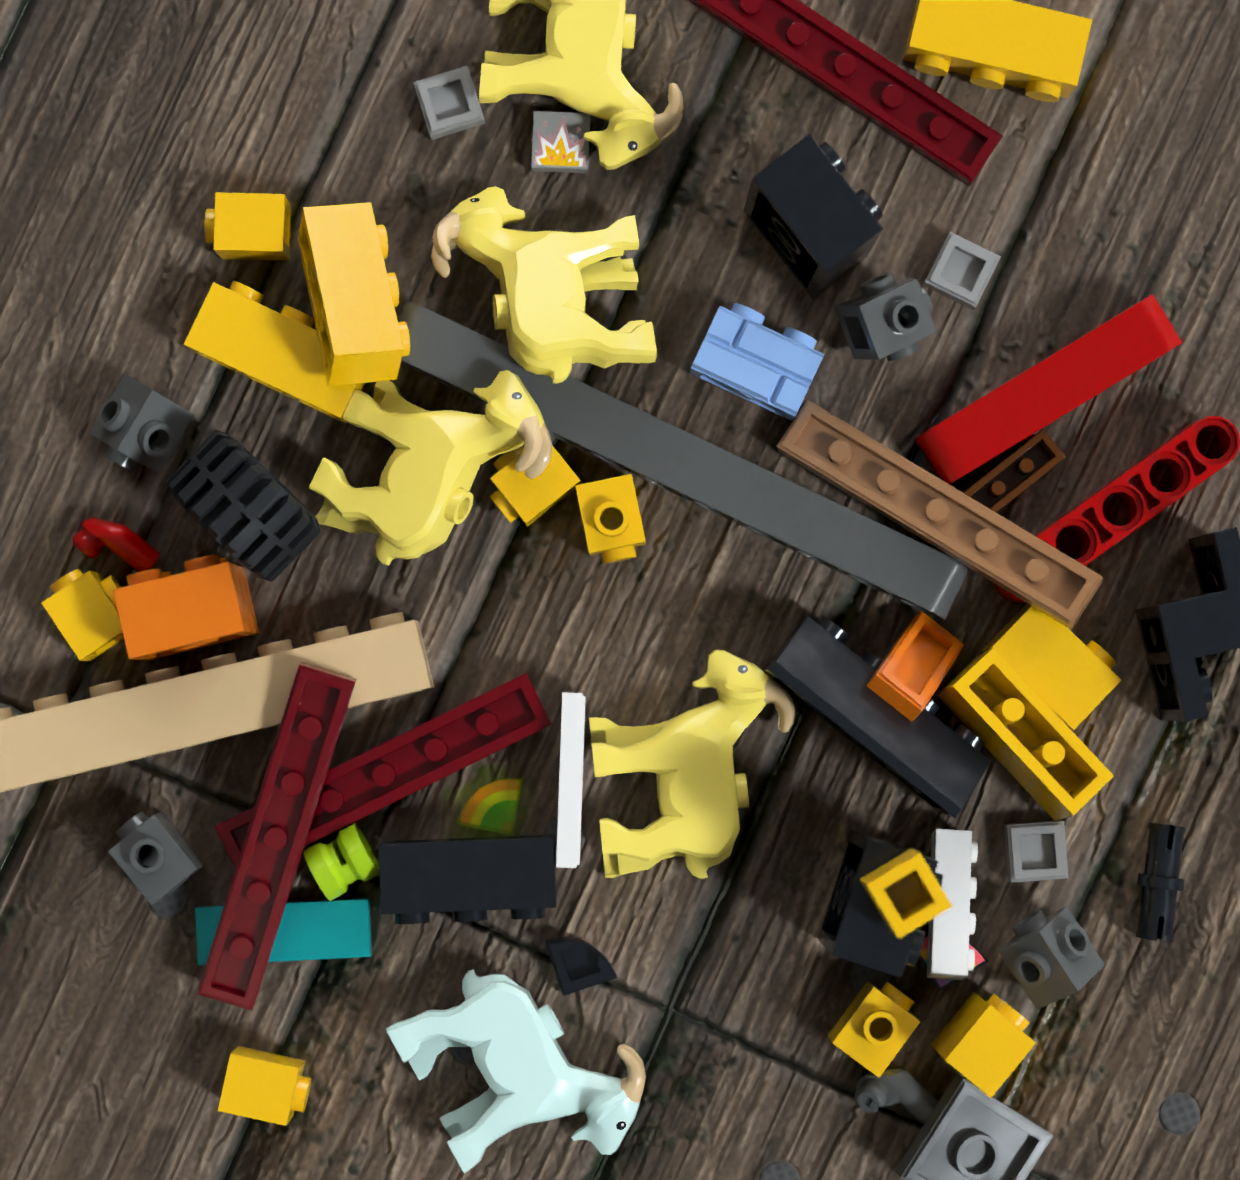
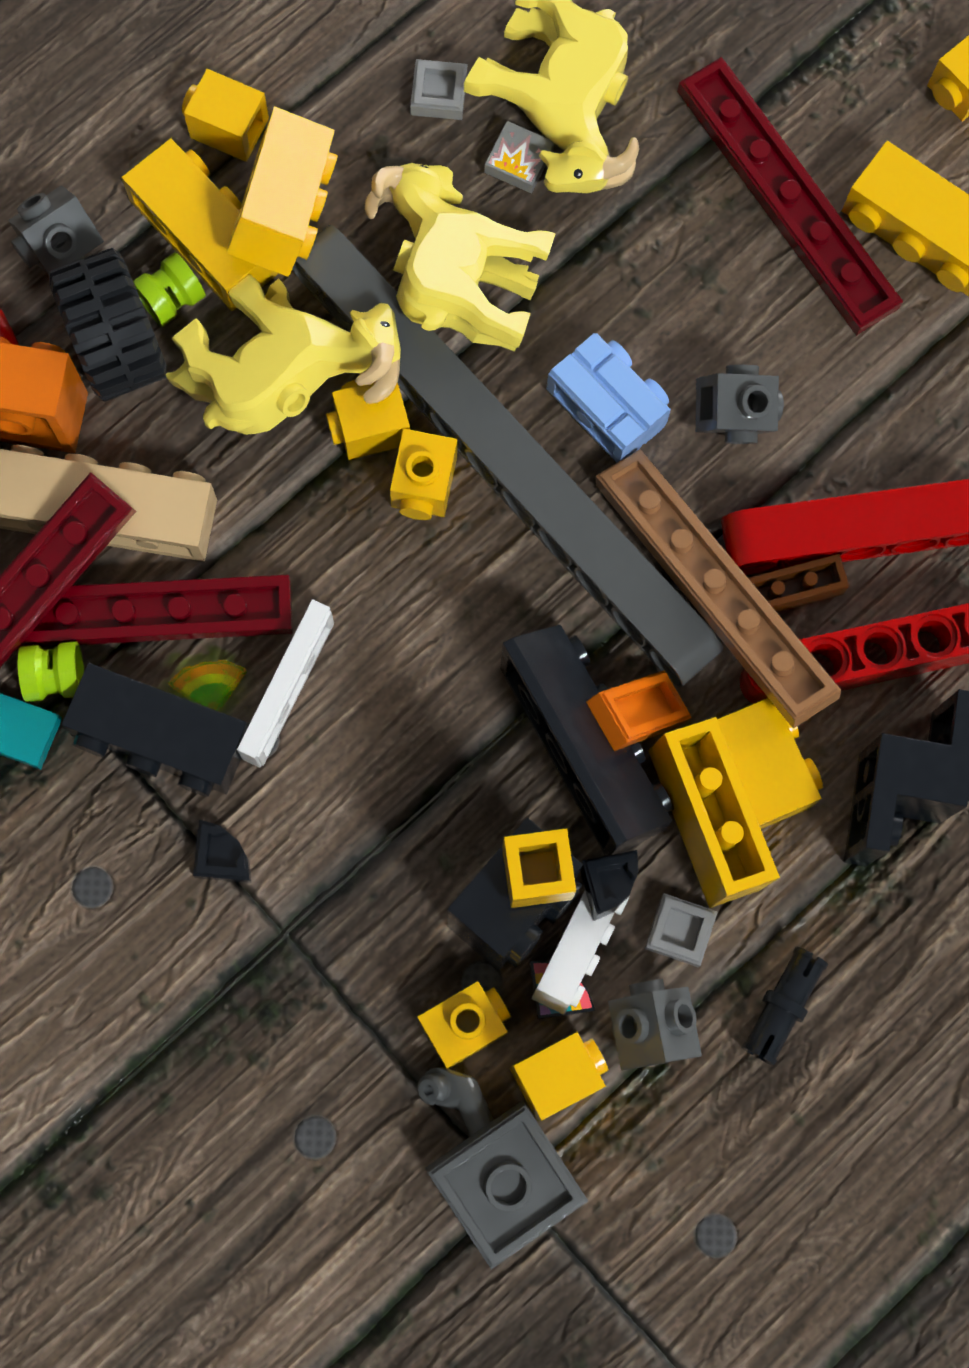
camera: 25 degrees right, 10 degrees down
(278, 434) = (169, 289): none -> lime wheel
(523, 1067) = (126, 922): light aqua animal -> none
(692, 770) = (398, 724): light yellow animal -> none
(813, 214) = (709, 281): black brick -> none
(955, 842) = (609, 881): none -> black tile
(961, 270) = (821, 399): light grey tile -> none

